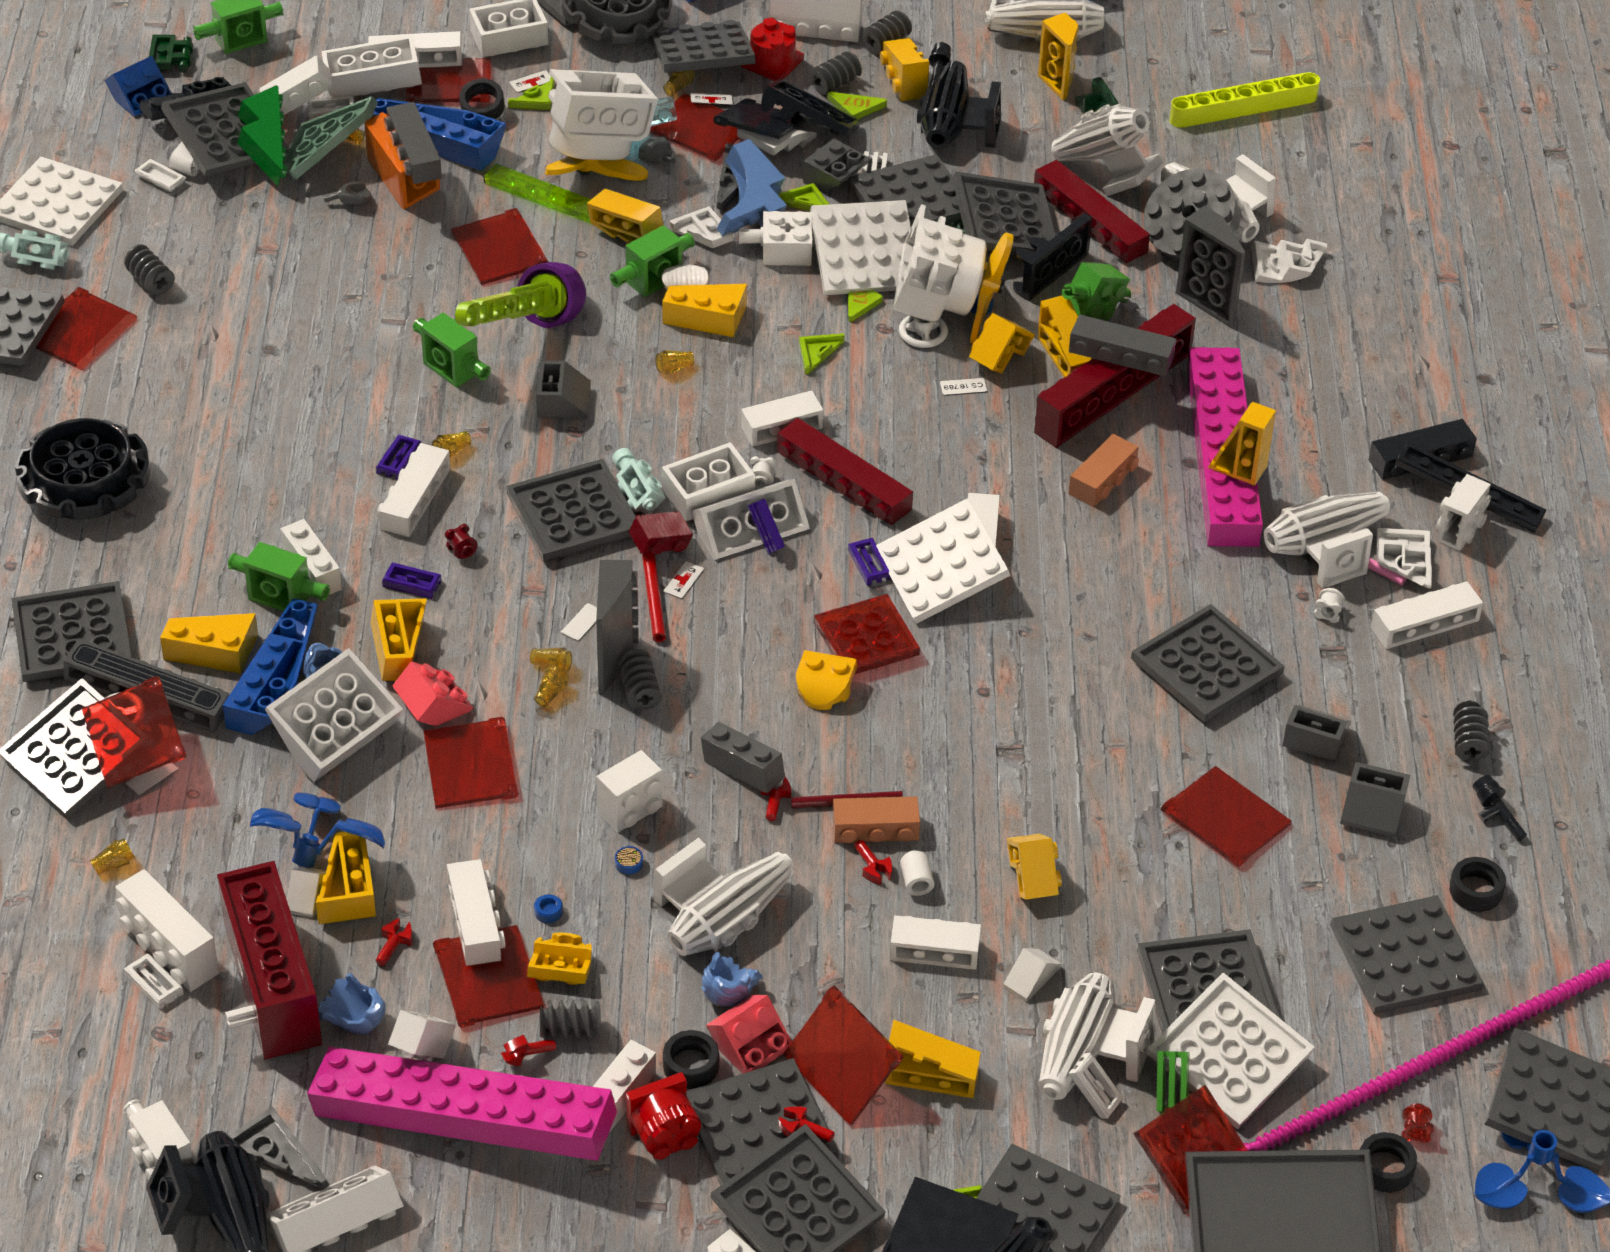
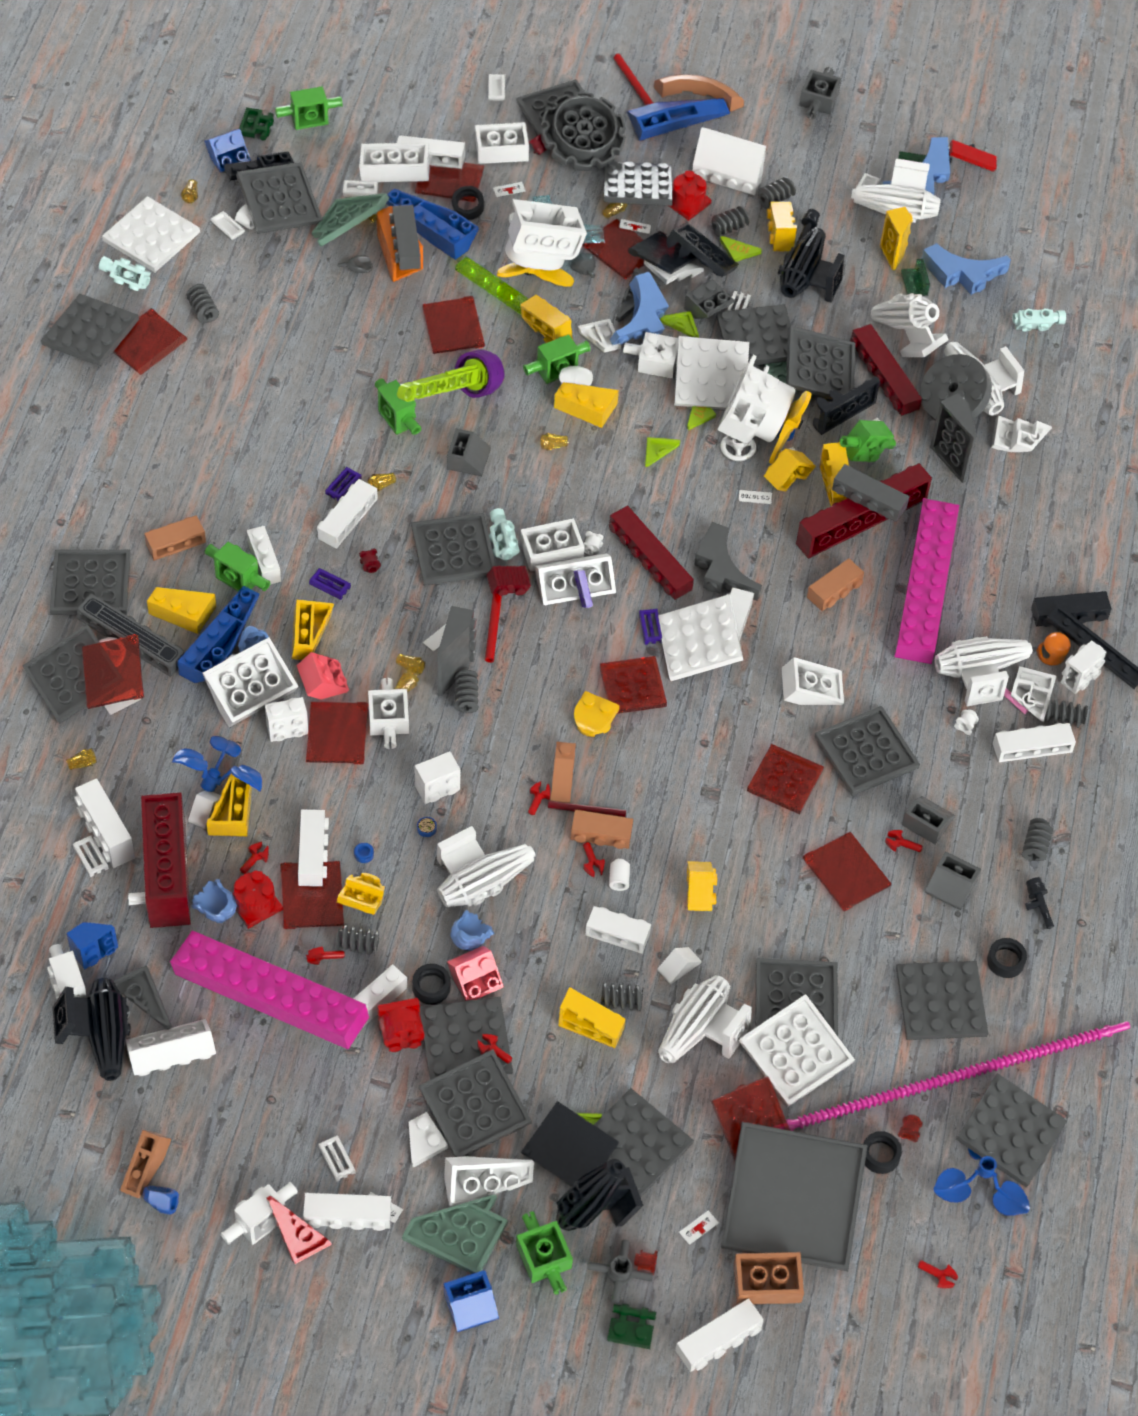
camera: 10 degrees right, 10 degrees up
(82, 468) = (123, 457): black piece -> none
(99, 144) = (190, 192): none -> clear yellow cone
(179, 557) = (175, 537): none -> nougat brick
(186, 1087) = (92, 942): none -> blue slope
(263, 133) = (305, 207): green slope -> none
(302, 83) = (336, 171): white brick -> none
(396, 753) = (286, 719): none -> white brick
(410, 984) = (255, 898): none -> red piece
(421, 1036) = (253, 935): white brick -> none
(534, 98) = (505, 204): lime tile -> none
(538, 722) = (388, 712): none -> white brick
(557, 22) = (537, 145): none -> dark red brick
(683, 579) = (518, 616): white sticker -> none
(743, 757) = (521, 765): dark grey brick -> none
(766, 419) = (608, 501): white brick -> none
(801, 756) = (563, 772): none -> nougat slope
(843, 1055) = (531, 1003): clear red piece -> none
(945, 476) = (721, 570): none -> dark grey arch
(966, 1025) = (622, 996): none -> dark grey piece
(1094, 1089) = (700, 1076): white tile -> none
(1107, 593) = (811, 683): none -> white slope
(1108, 715) = (785, 779): none -> clear red plate
(1141, 85) = (970, 273): none -> medium blue arch
(1161, 1070) = (739, 1080): bright green tile -> none
(1244, 99) = (1026, 294): neon yellow beam -> none
(1248, 445) = (936, 592): yellow wedge -> none
(1269, 124) = (1037, 320): none -> light aqua brick
(1286, 766) = (900, 841): none -> red bar
(1422, 494) = (1057, 646): none -> orange helmet
(1459, 571) = (1066, 713): none -> dark grey piece

